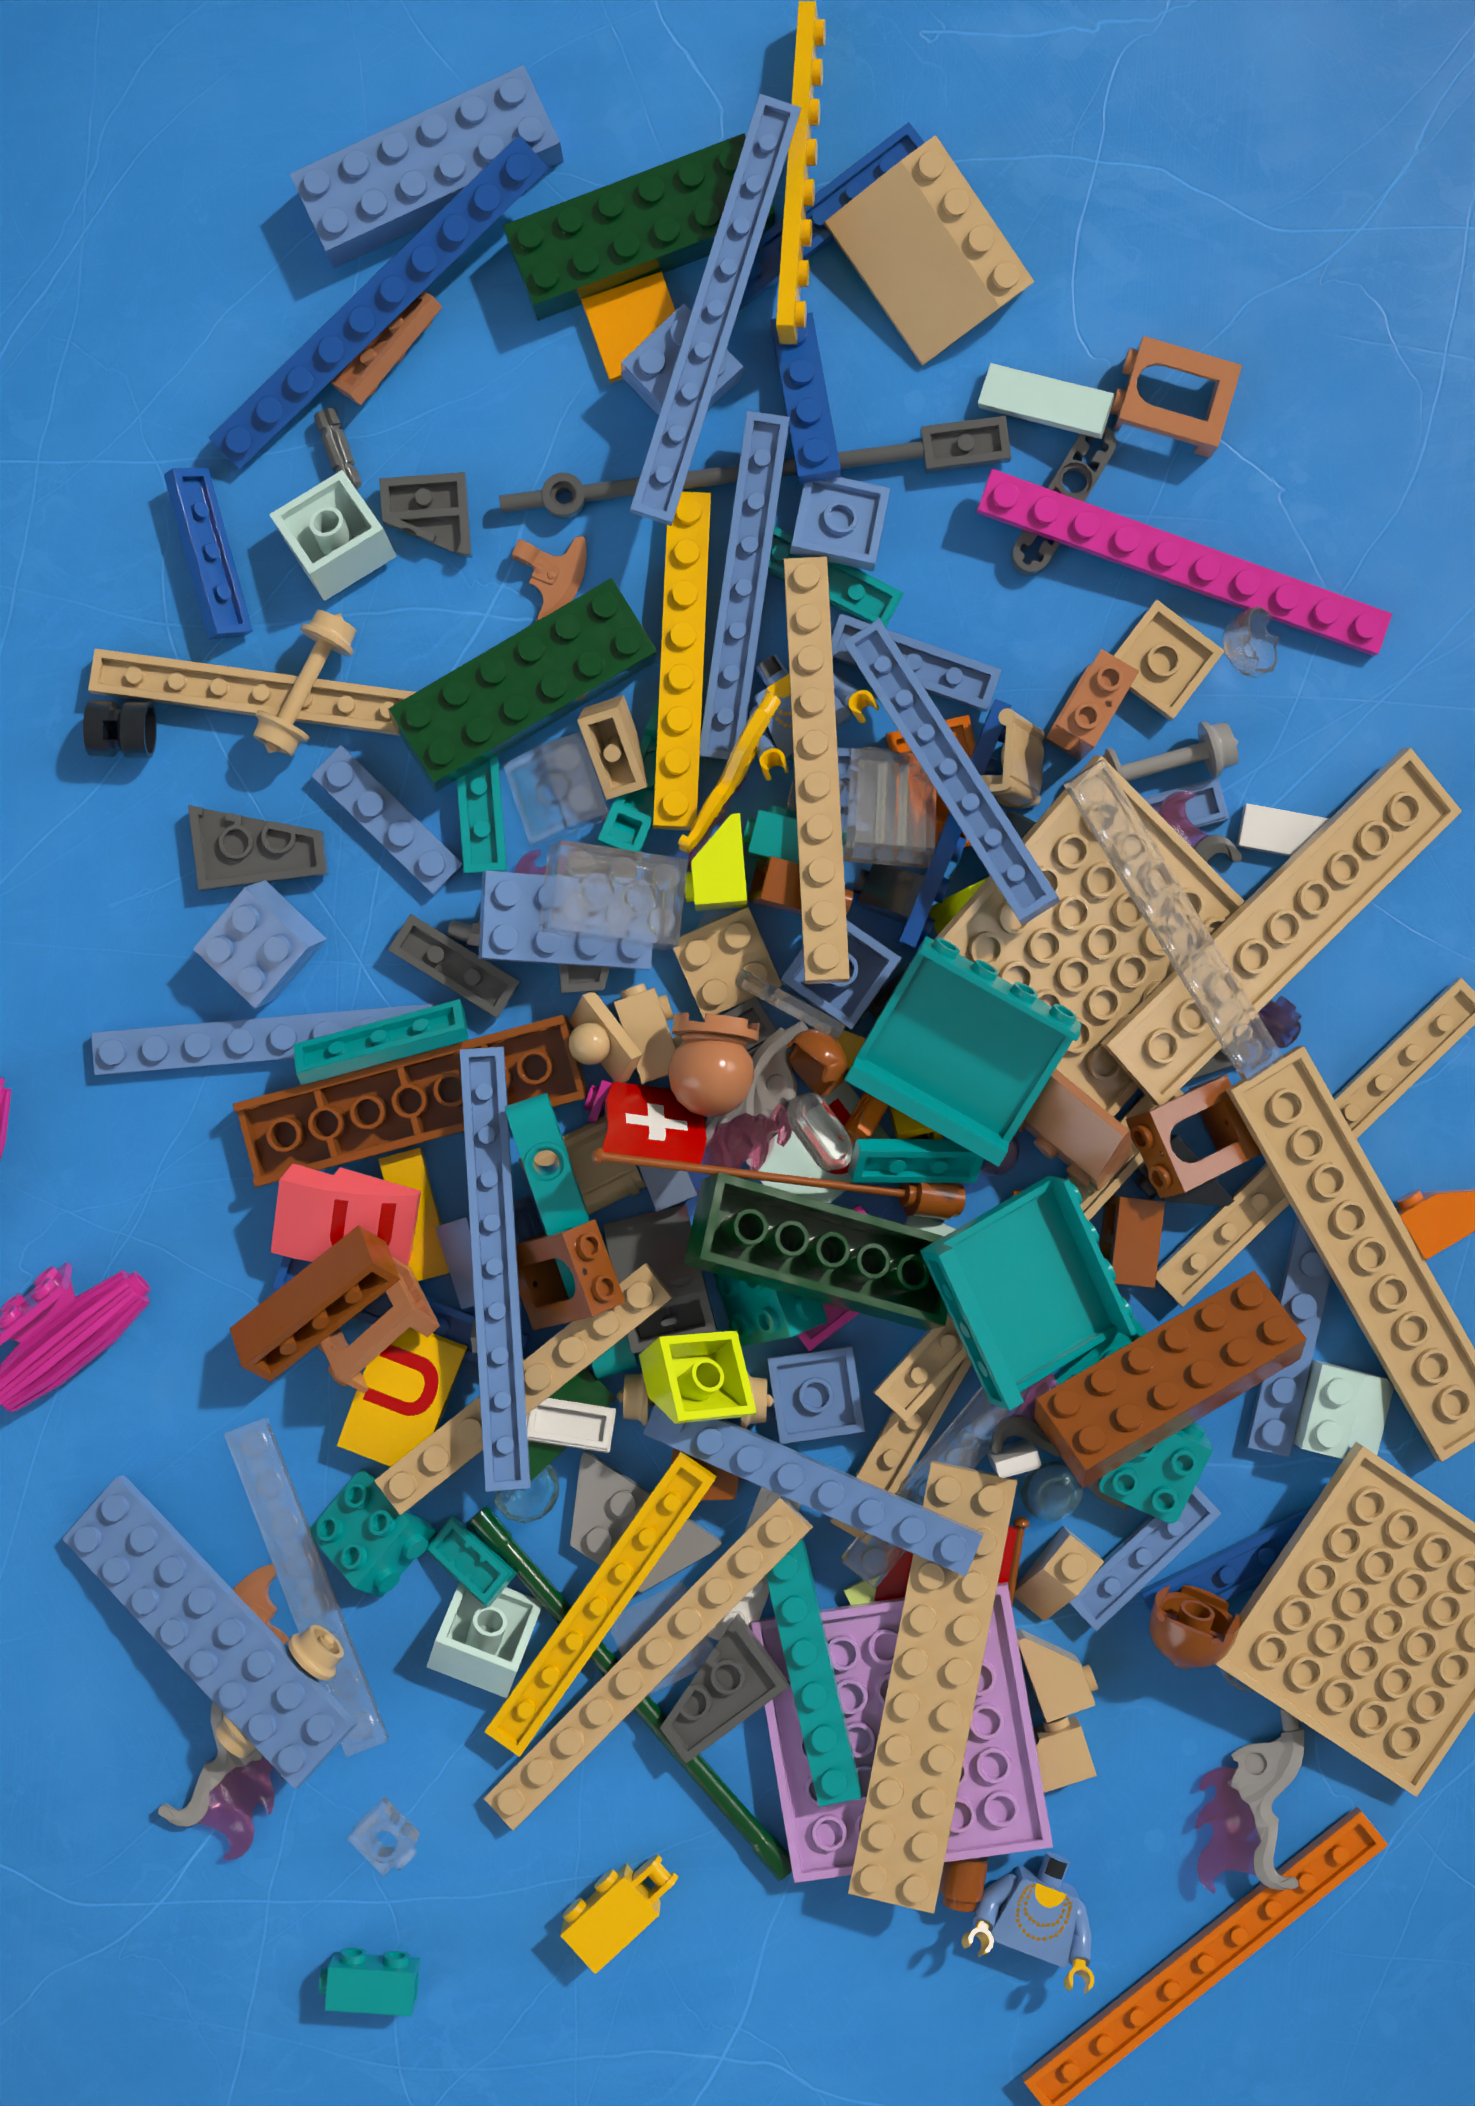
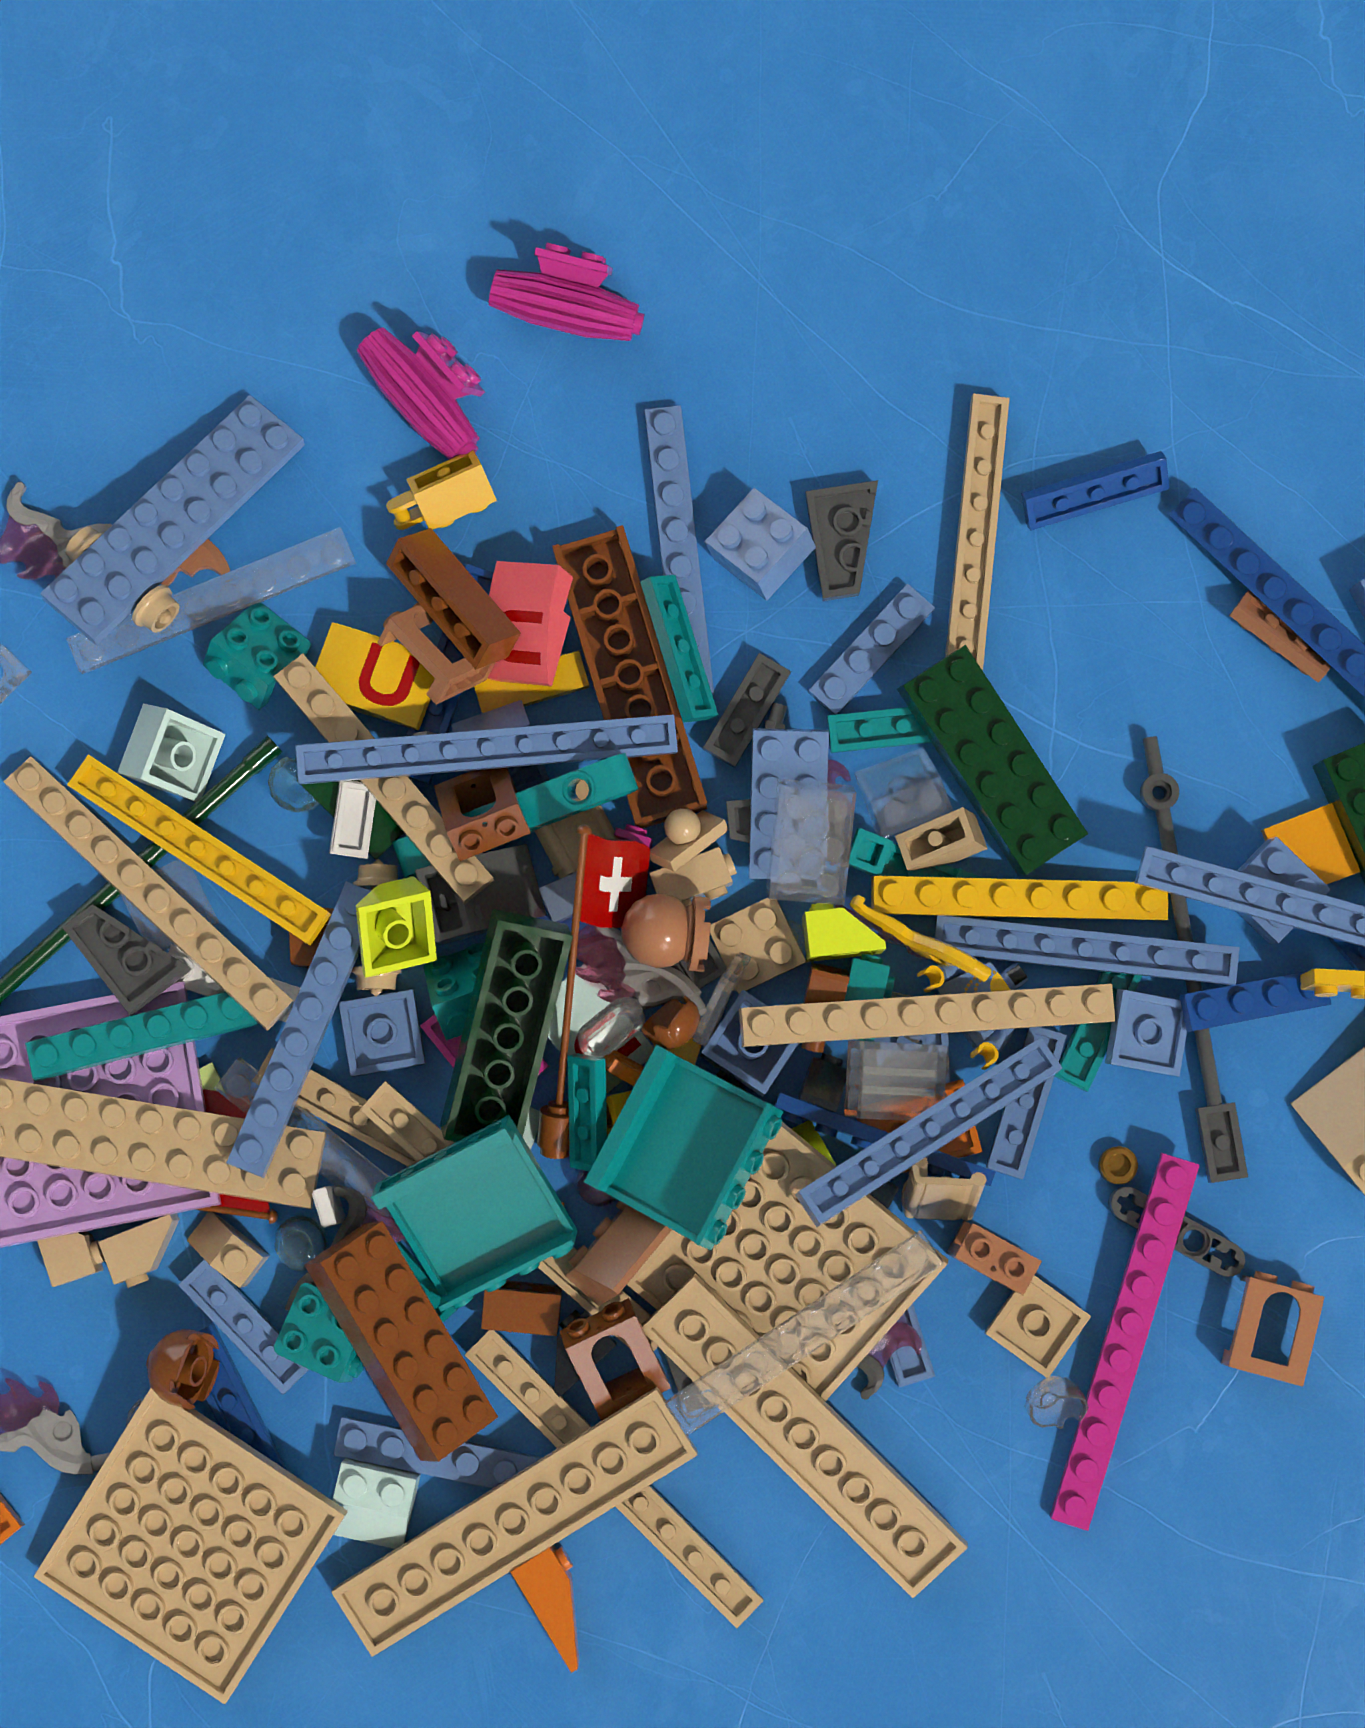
camera: 85 degrees right, 5 degrees down
(134, 729) = (940, 416): black wheel -> none
(188, 1313) = (443, 494): none -> yellow brick
(330, 634) = (1030, 595): tan piece -> none
(333, 535) = (1115, 595): light aqua slope -> none
(336, 445) = (1190, 597): dark grey axle -> none
(429, 509) = (1142, 677): dark grey wing -> none
(471, 1561) = (234, 739): teal plate -> none
(554, 576) = (1089, 786): nougat piece -> none
(608, 1504) = (283, 853): light grey wing -> none
(987, 562) = (1118, 1165): none -> pearl gold tile
(1046, 400) = (1263, 1213): light aqua tile -> none
(1215, 747) = (961, 1373): light grey piece -> none
(1276, 829) = (890, 1430): white tile -> none
(1281, 1021) = (719, 1435): clear purple gear -> none

